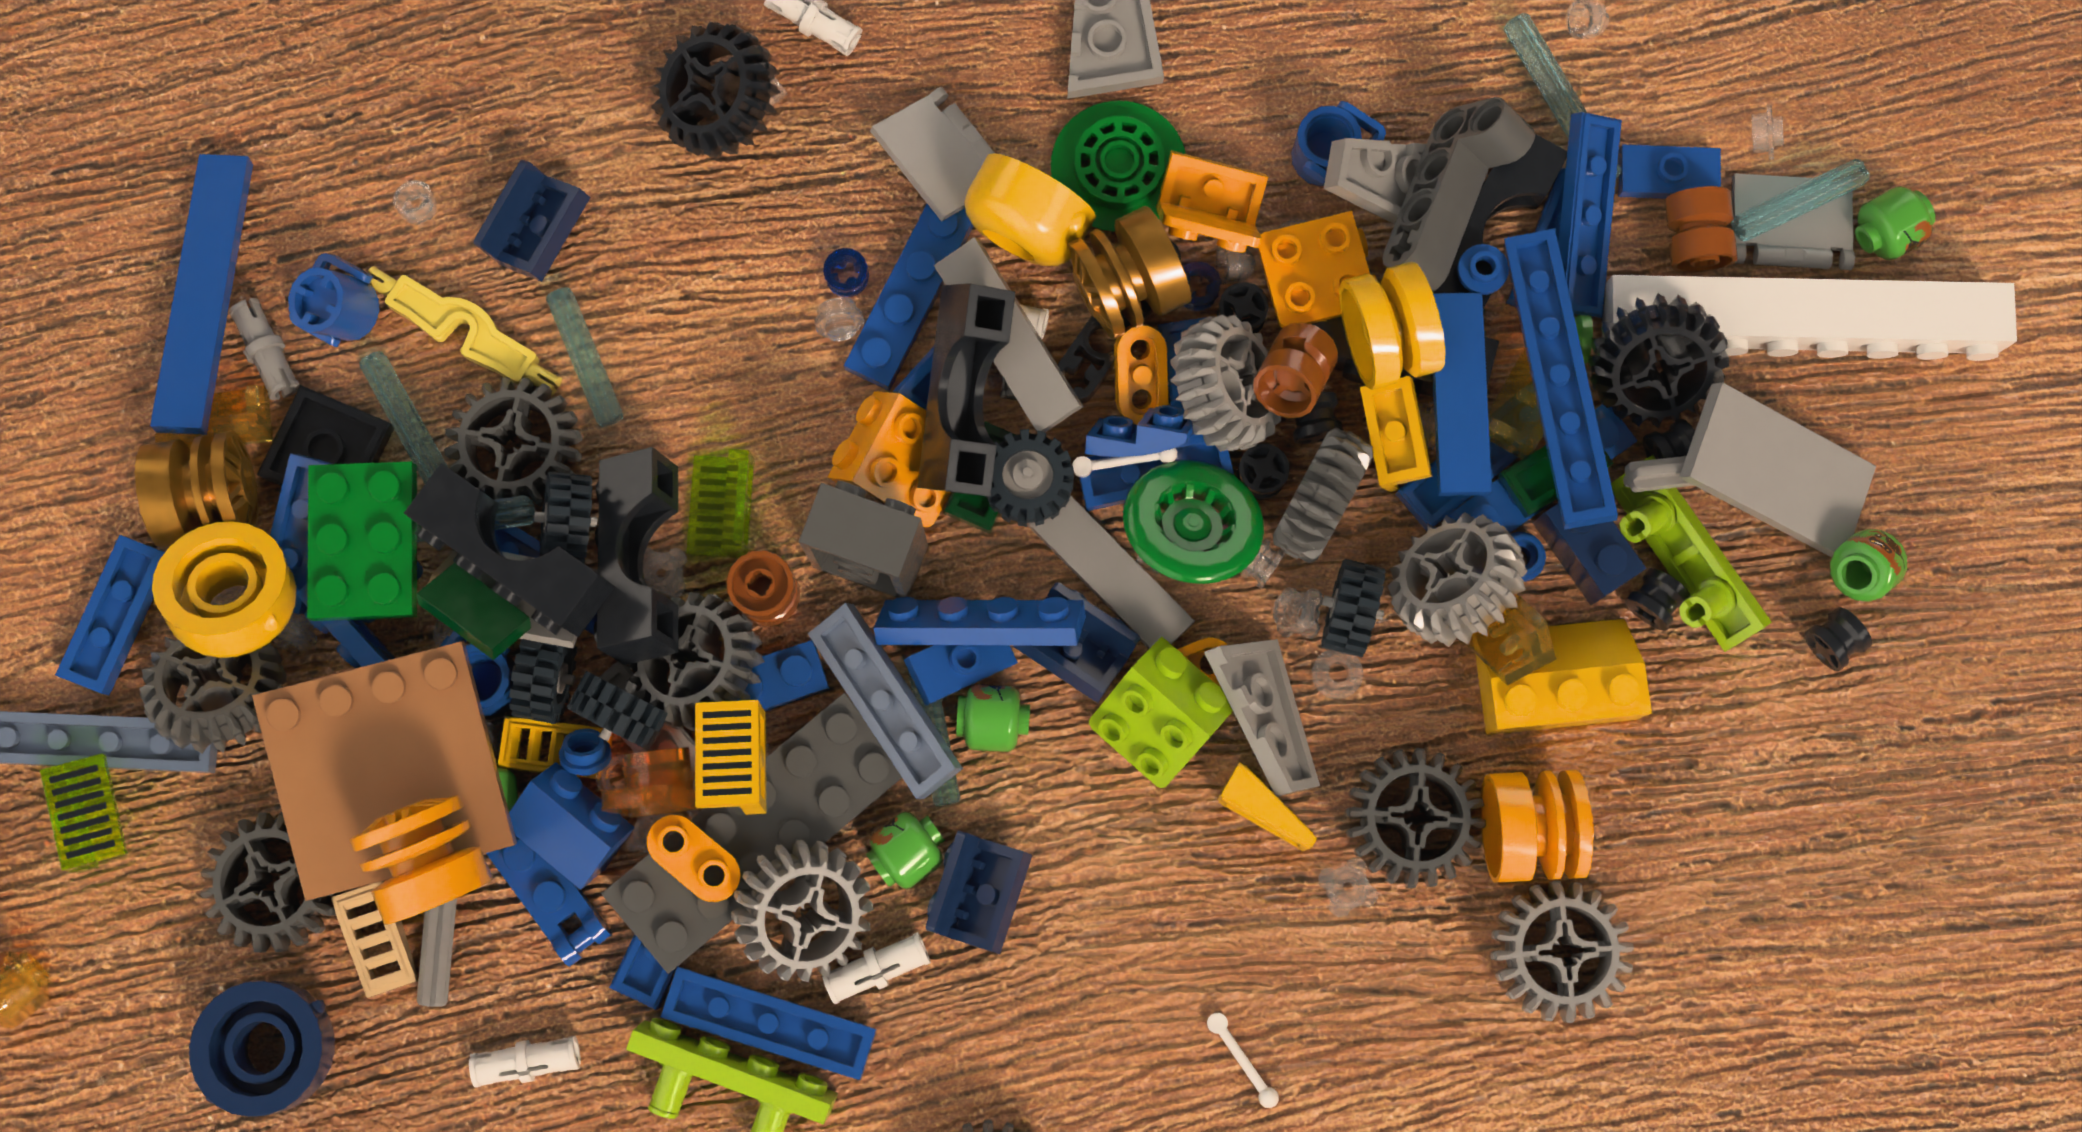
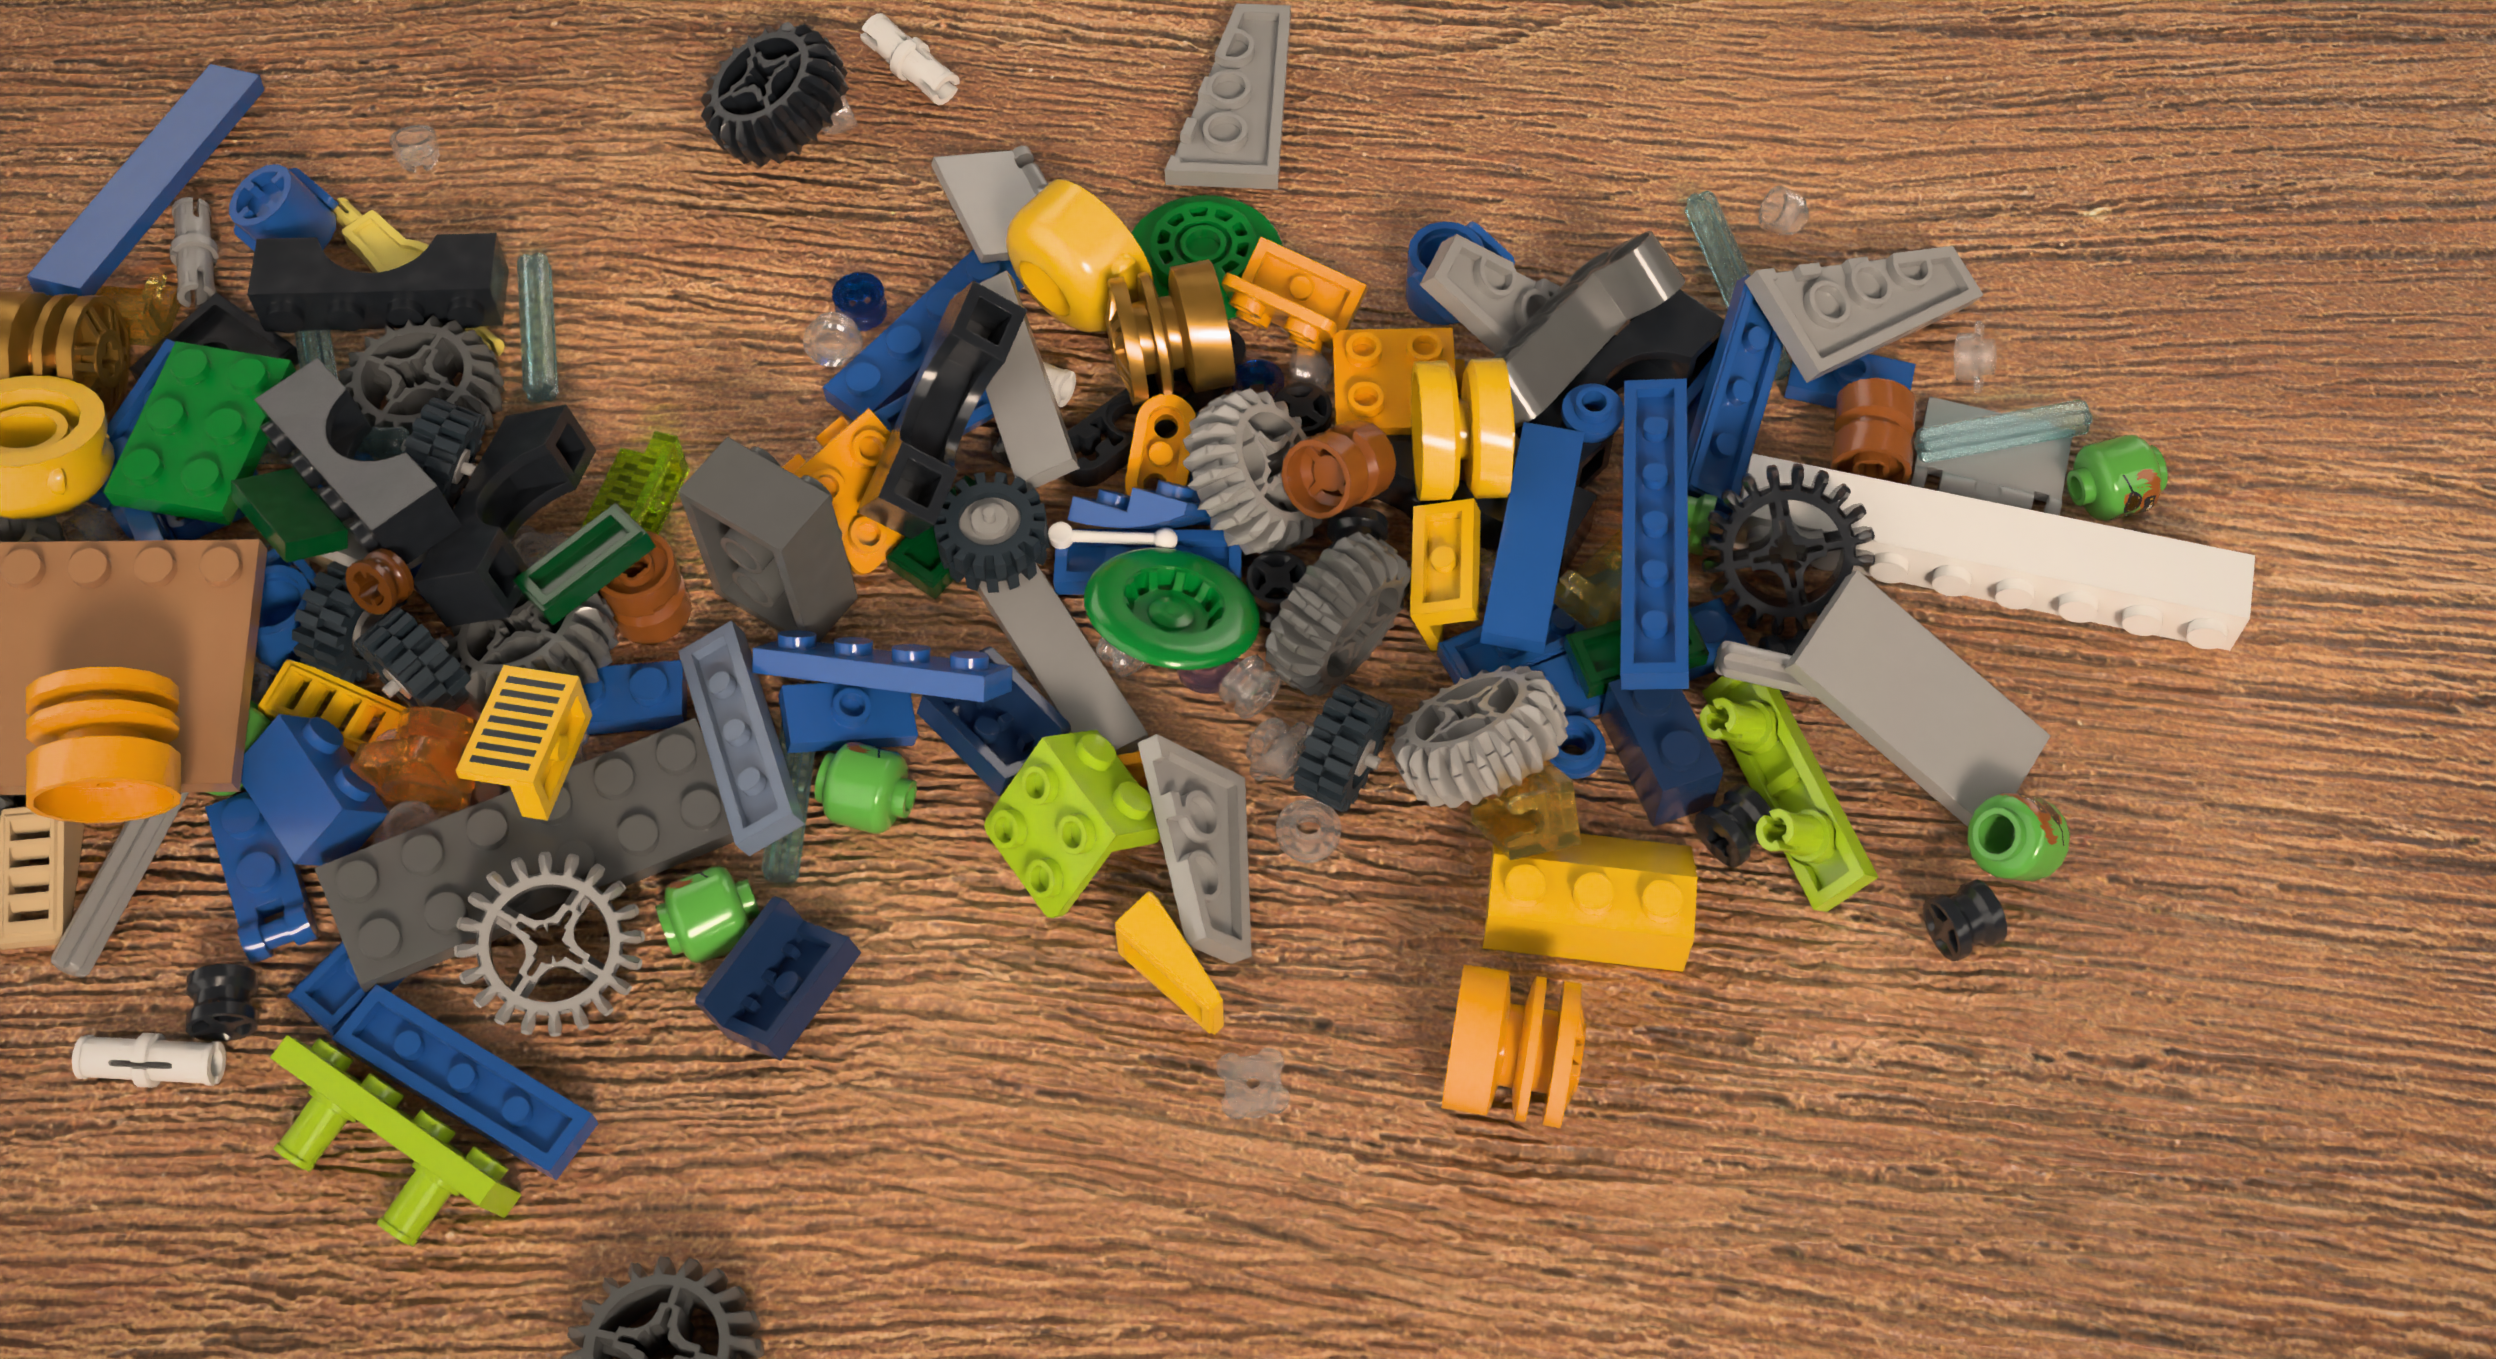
camera: 15 degrees right, 20 degrees down
(508, 345) = (453, 279): none -> black arch
(530, 221) = (528, 182): dark blue bracket -> none
(564, 1007) = (221, 1002): none -> black wheel
(573, 657) = (379, 581): none -> reddish brown bush
(584, 752) = (362, 714): blue plate -> none
(693, 858) = (437, 843): light orange plate -> none
(724, 596) = (584, 563): none -> dark green tile
(876, 968) = (577, 1053): white pin -> none
(1218, 1024) = (1037, 1222): white hinge -> none
(1415, 795) = (1386, 1024): dark grey gear -> none
(1564, 975) = (1541, 1223): light grey gear -> none
(1669, 114) = (1861, 305): none -> light grey wing

